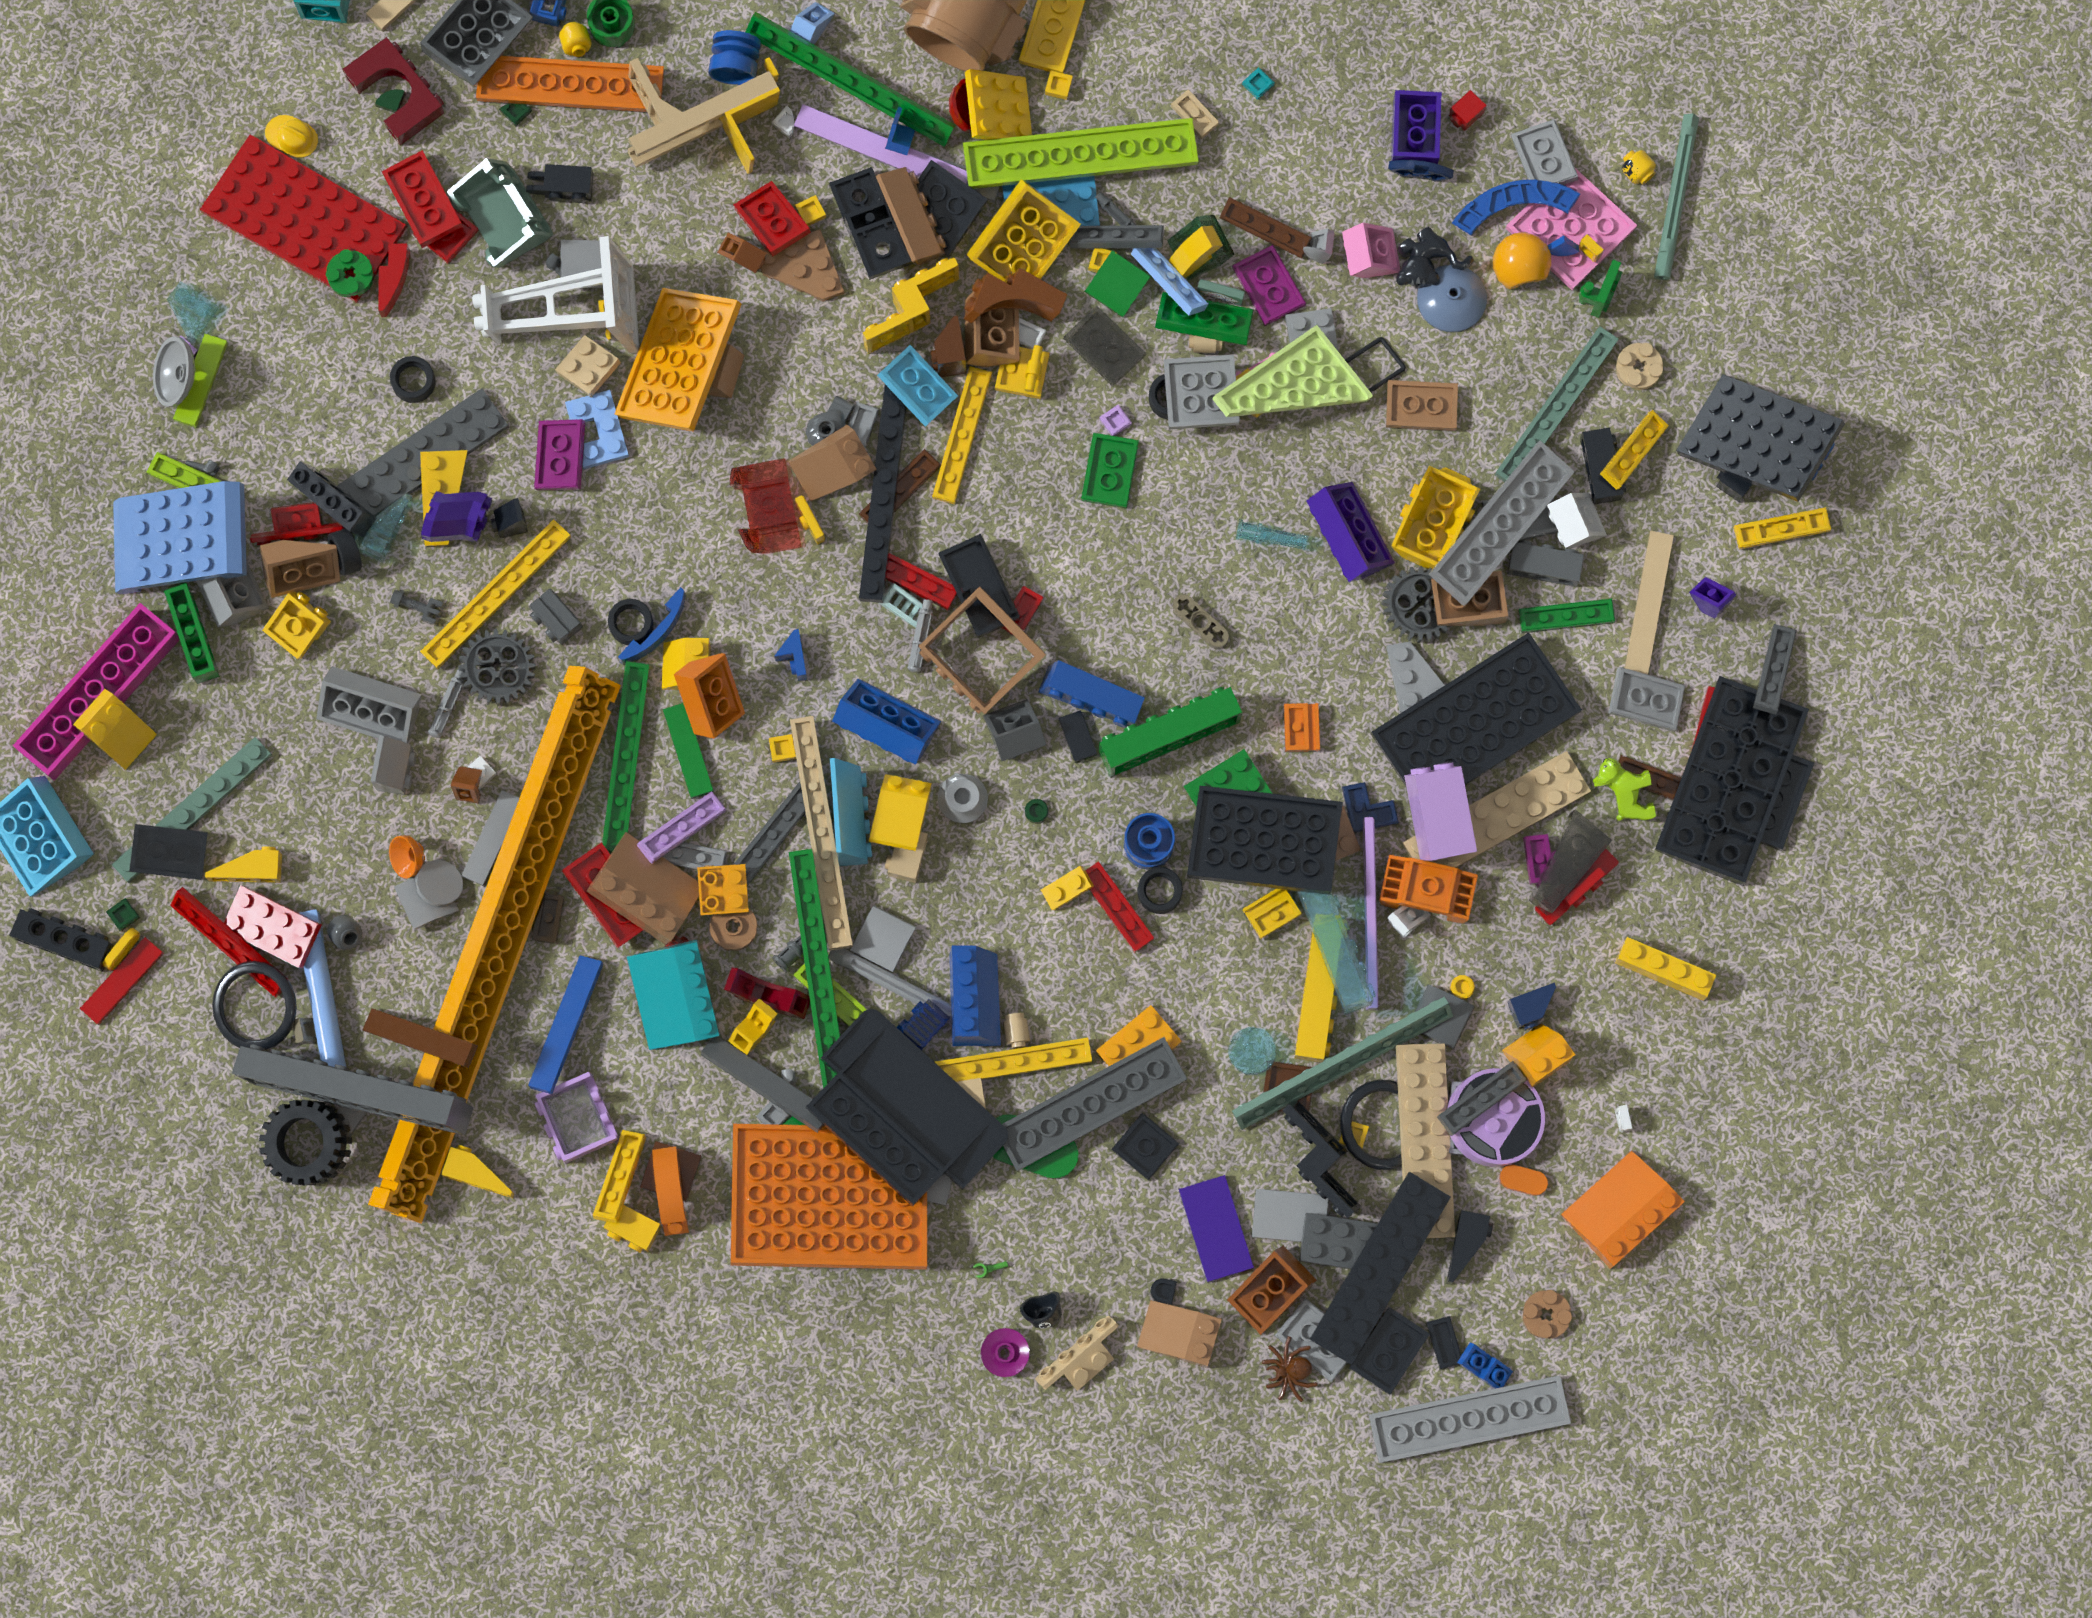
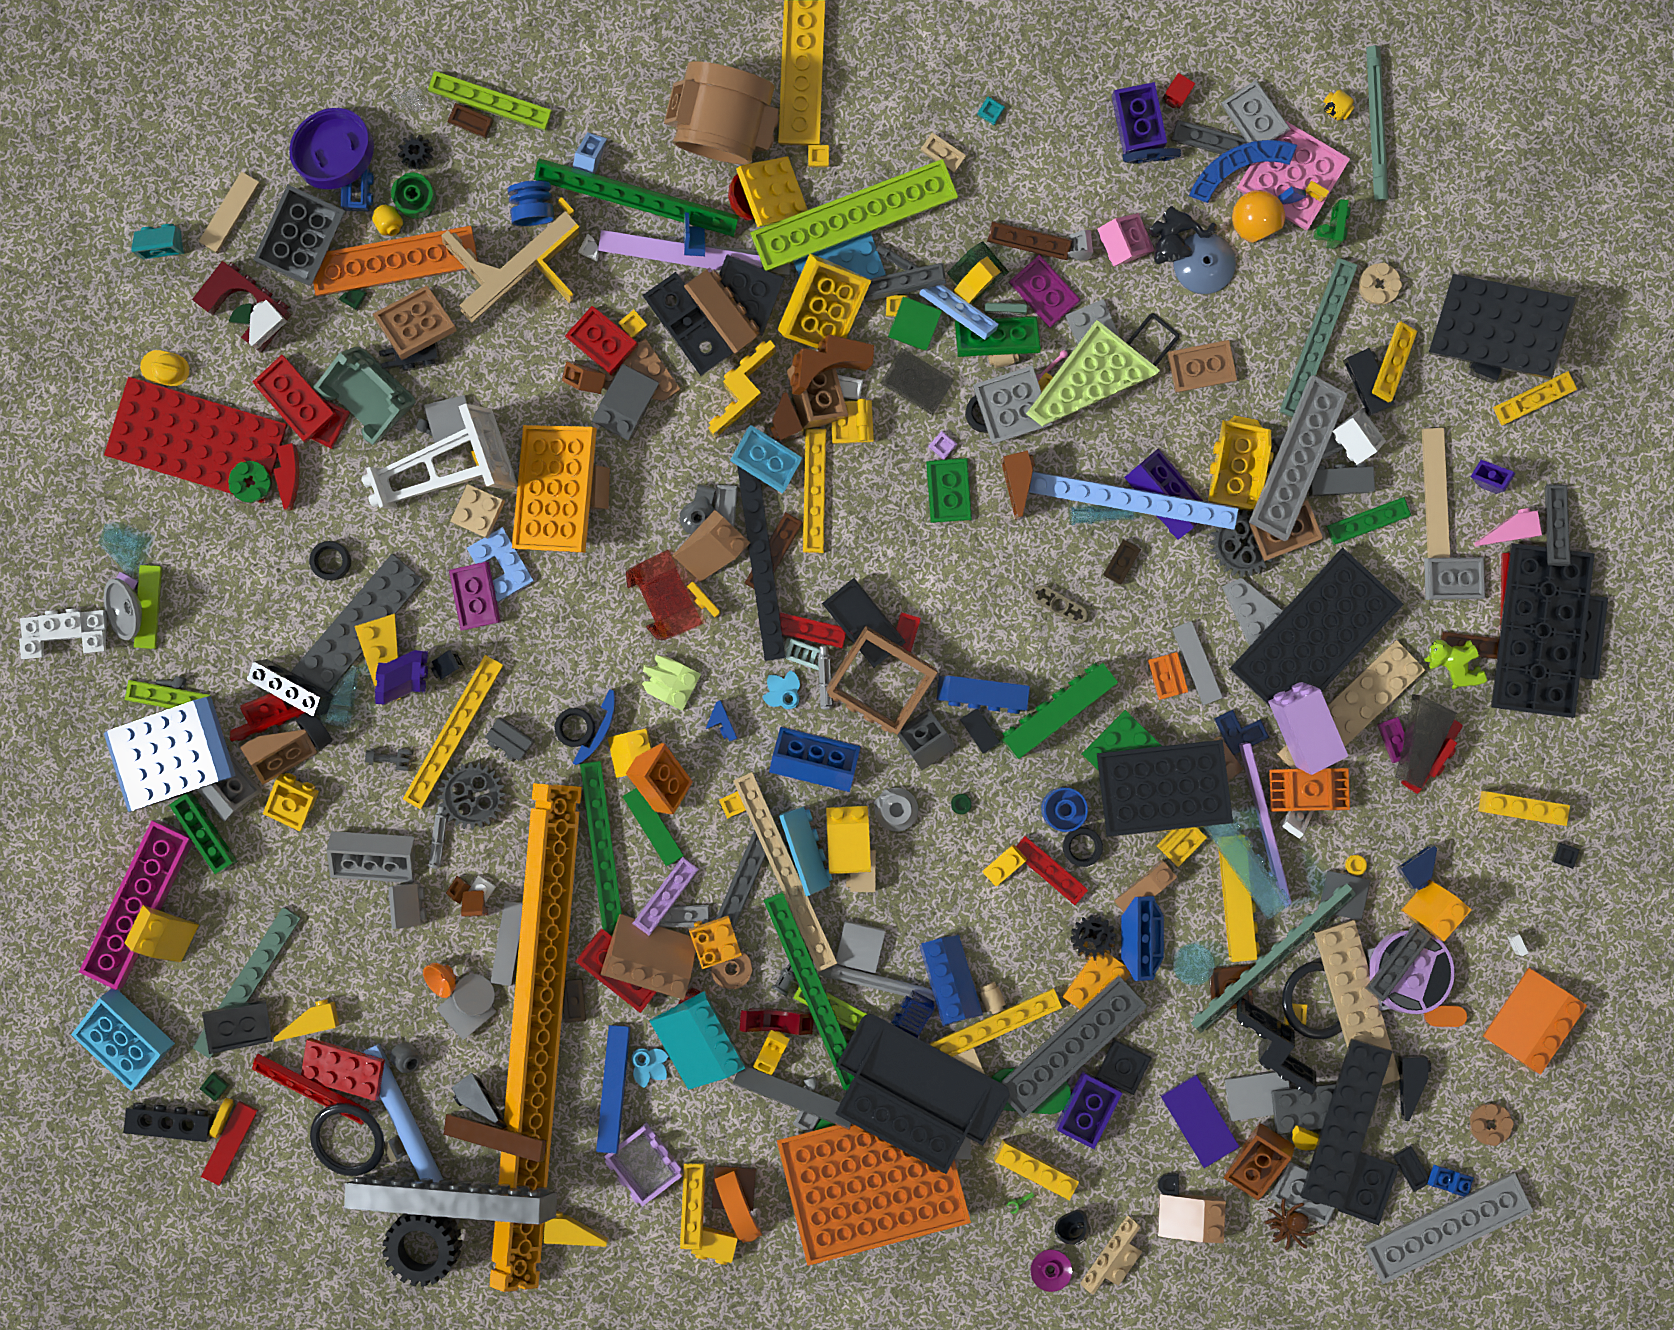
camera: 15 degrees left, 10 degrees up
(104, 378) = (70, 625): none -> white bracket
(410, 997) = (474, 1096): none -> slope
(413, 111) = (264, 322): none -> white slope
(451, 765) = (457, 888): none -> reddish brown plate
(574, 150) = (414, 322): none -> medium nougat plate
(615, 1014) = (651, 1068): none -> medium azure plate
(749, 599) = (670, 681): none -> yellowish green plate
(780, 289) = (625, 402): none -> dark grey slope
(868, 637) = (780, 688): none -> medium azure plate
(1016, 1233) = (1036, 1169): none -> yellow brick
(1092, 1180) = (1088, 1110): none -> dark purple brick
(1146, 991) = (1091, 929): none -> black gear
(1190, 462) = (1018, 474): none -> dark orange slope
(1202, 1003) = (1142, 938): none -> blue wedge
(1219, 952) = (1148, 885): none -> medium nougat slope
(1280, 592) = (1121, 562): none -> dark brown plate
(1309, 524) = (1134, 500): none -> light blue plate
(1328, 1274) = (1304, 1138): none -> yellow tile
(1338, 722) = (1197, 663): none -> light grey tile
(1482, 166) = (1205, 138): none -> dark grey tile
(1702, 1035) = (1565, 855): none -> black tile
(1730, 661) = (1518, 526): none -> bright pink slope

